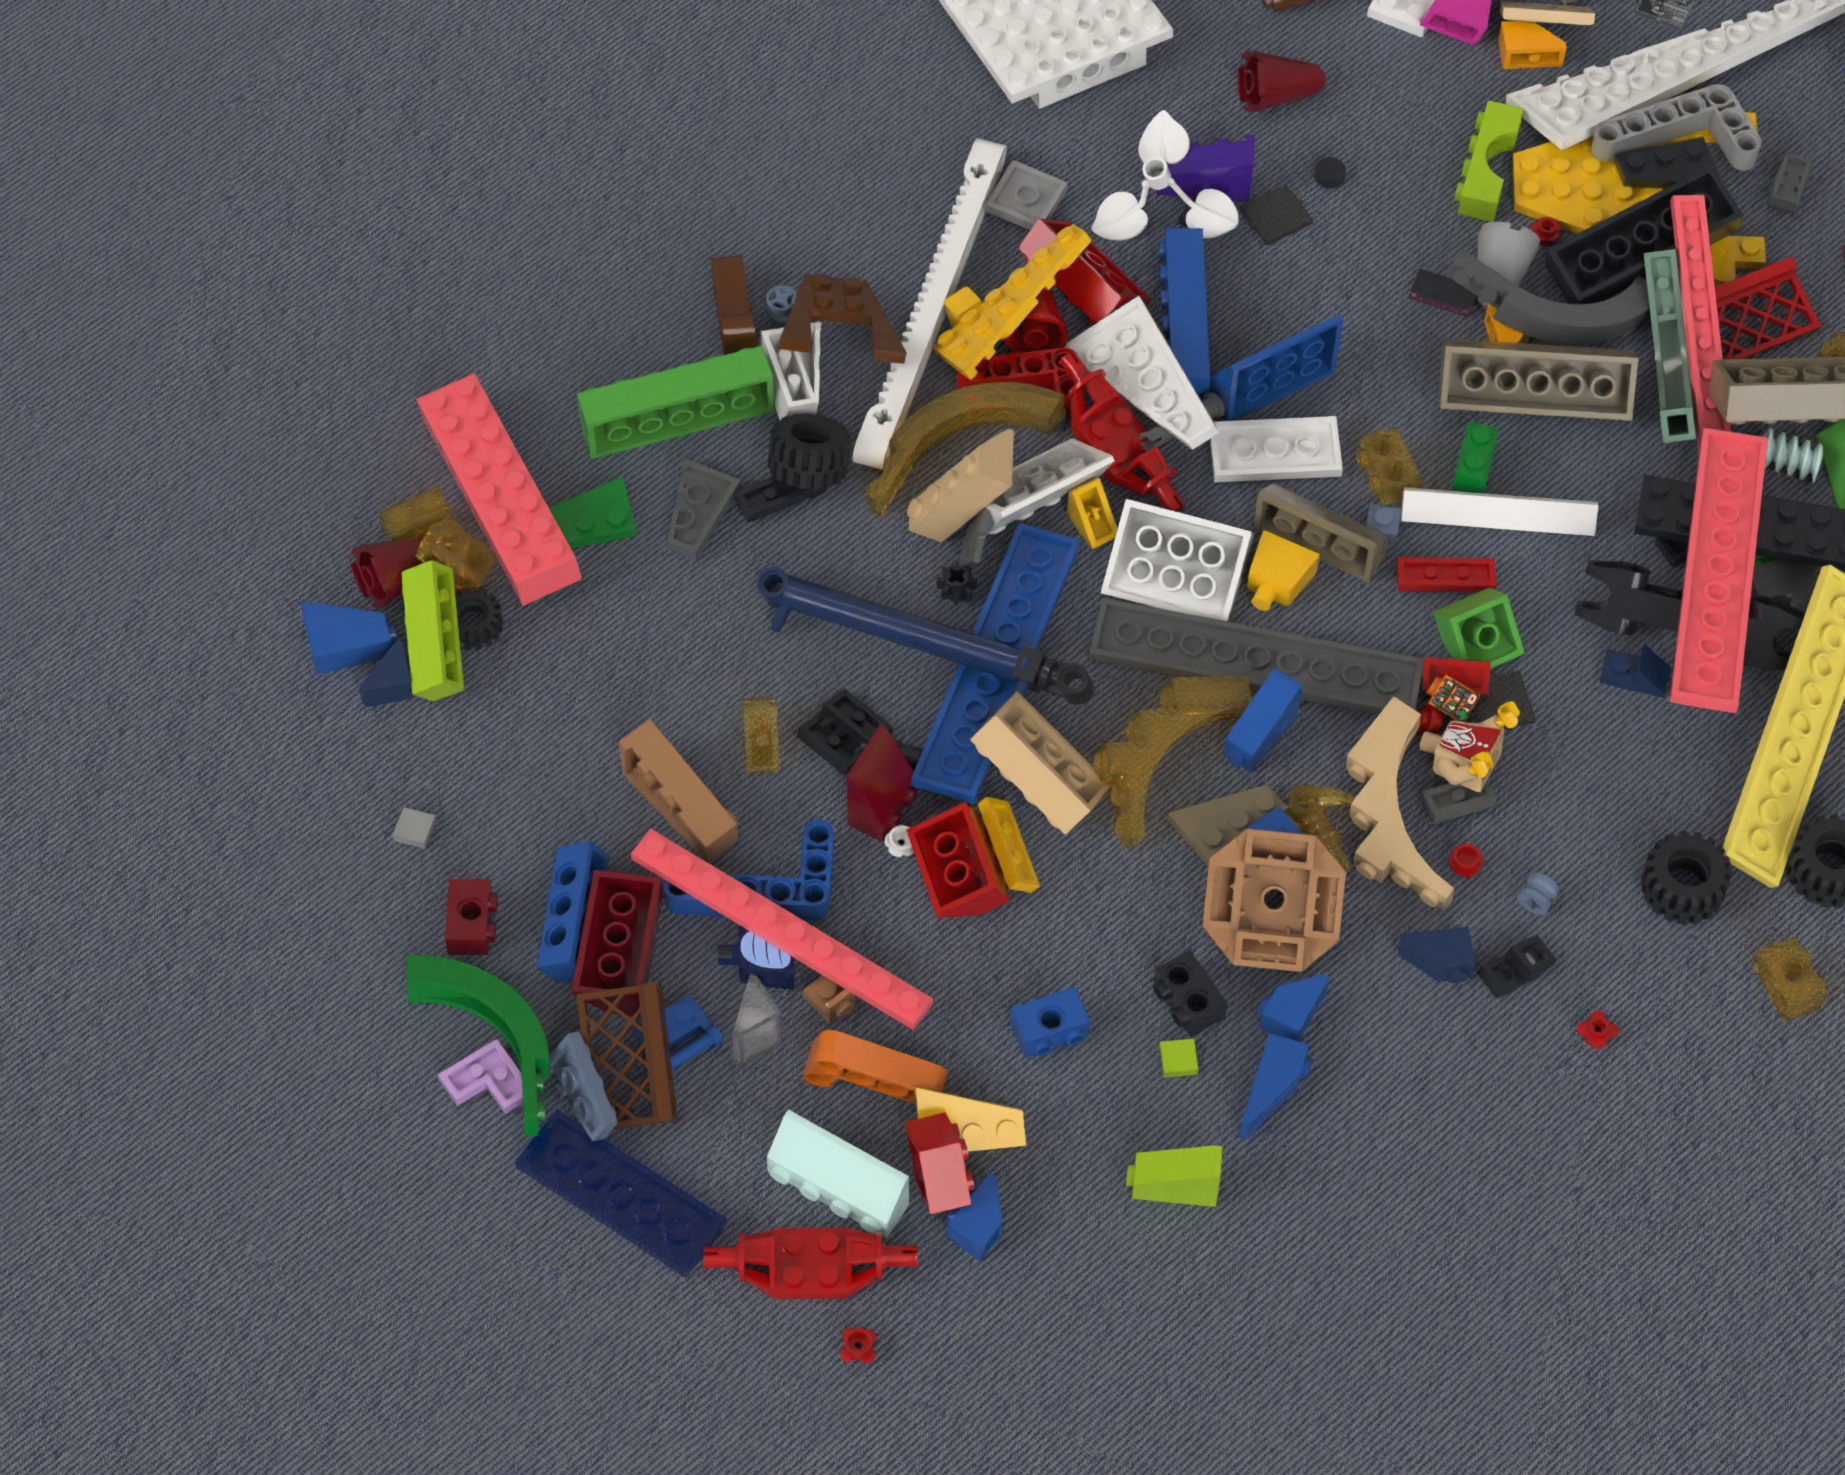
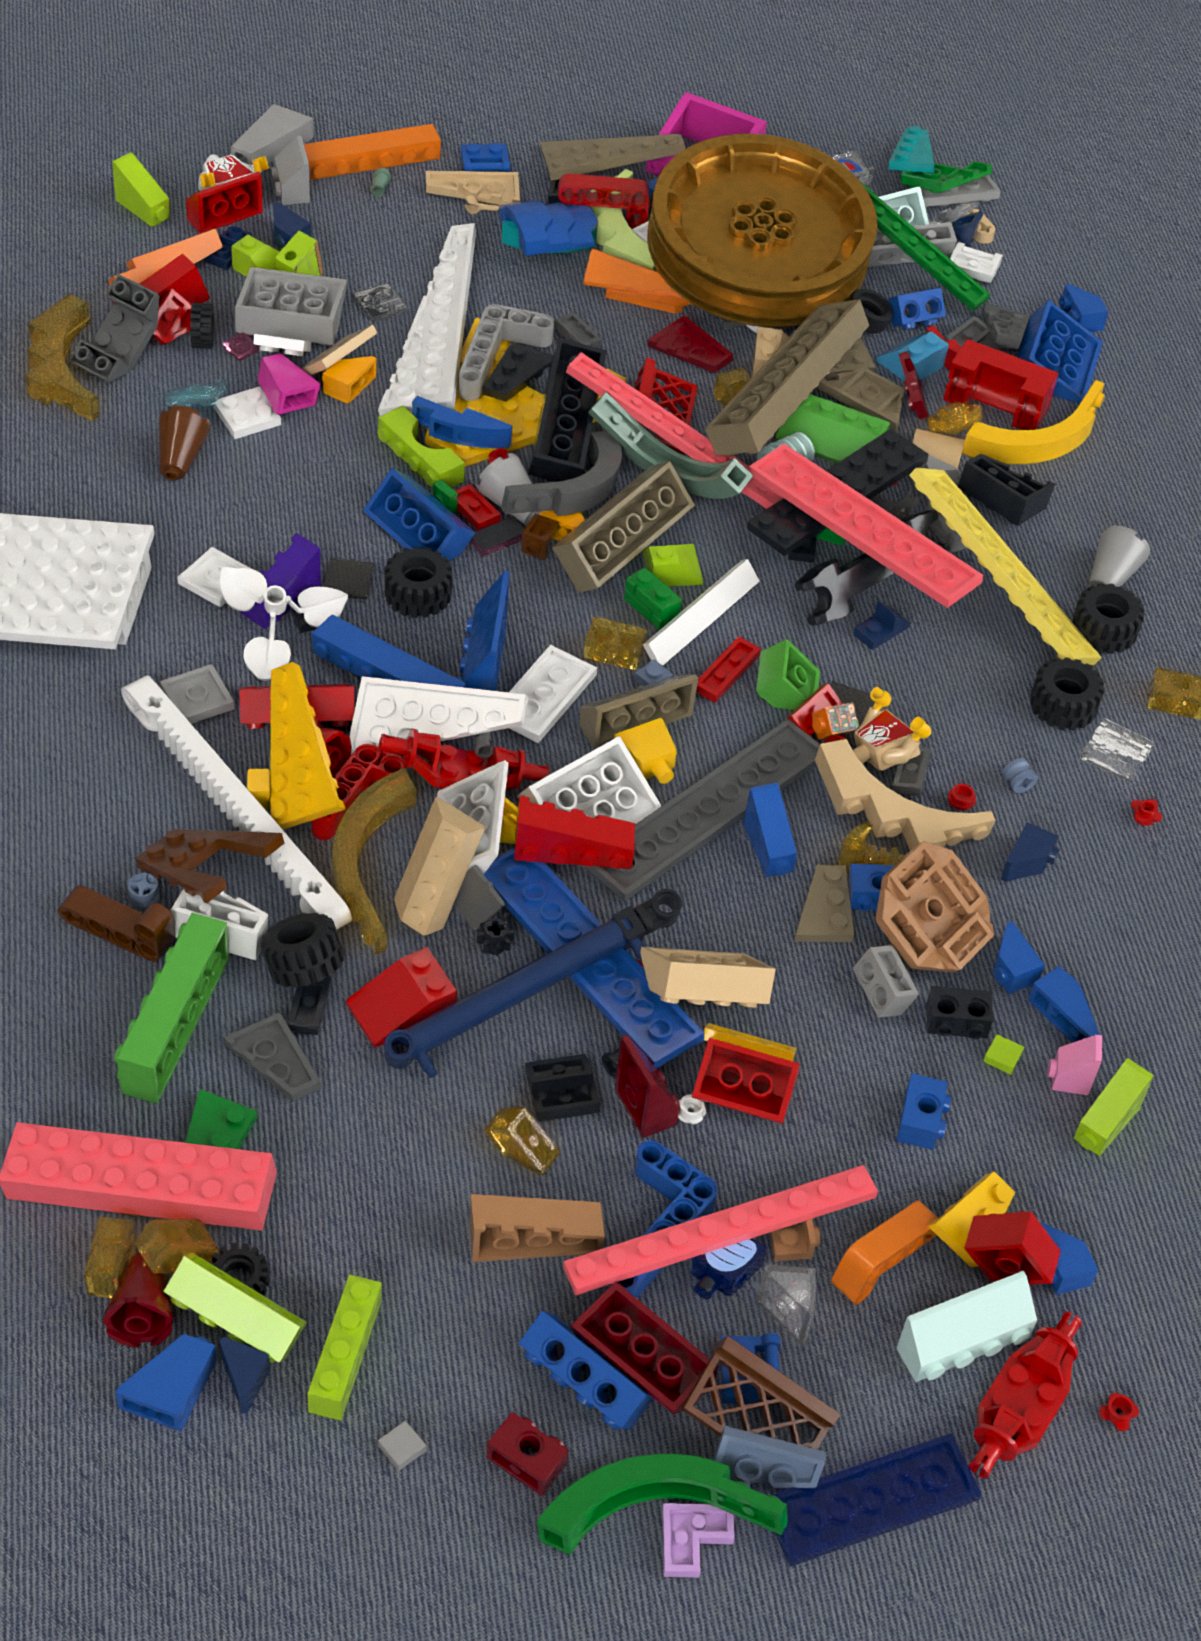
camera: 60 degrees left, 10 degrees down
(464, 730) = (344, 1347): none -> lime brick
(835, 556) = (401, 996): none -> red slope
(1101, 567) = (571, 837): none -> red wedge
(1130, 765) = (736, 899): clear yellow arch -> none
(1167, 911) = (885, 981): none -> light grey brick
(1185, 106) = (204, 575): none -> white plate
(1203, 1120) = (1076, 1065): none -> bright pink slope
(1276, 80) = (244, 509): dark red cone -> none
(1312, 247) = (418, 582): none -> black tyre
(1330, 172) = (344, 531): black tile -> none
(1396, 217) = (417, 516): none -> blue slope
(1442, 218) = (445, 495): none -> green plate
(1459, 237) = (476, 508): none -> red plate
(1468, 320) = (538, 536): none -> reddish brown bracket
(1517, 967) = (1065, 822): black slope -> none
(1540, 172) = (464, 428): none -> blue slope
(1544, 450) = (674, 564): none -> lime slope
(1660, 964) = (1117, 750): none -> clear slope

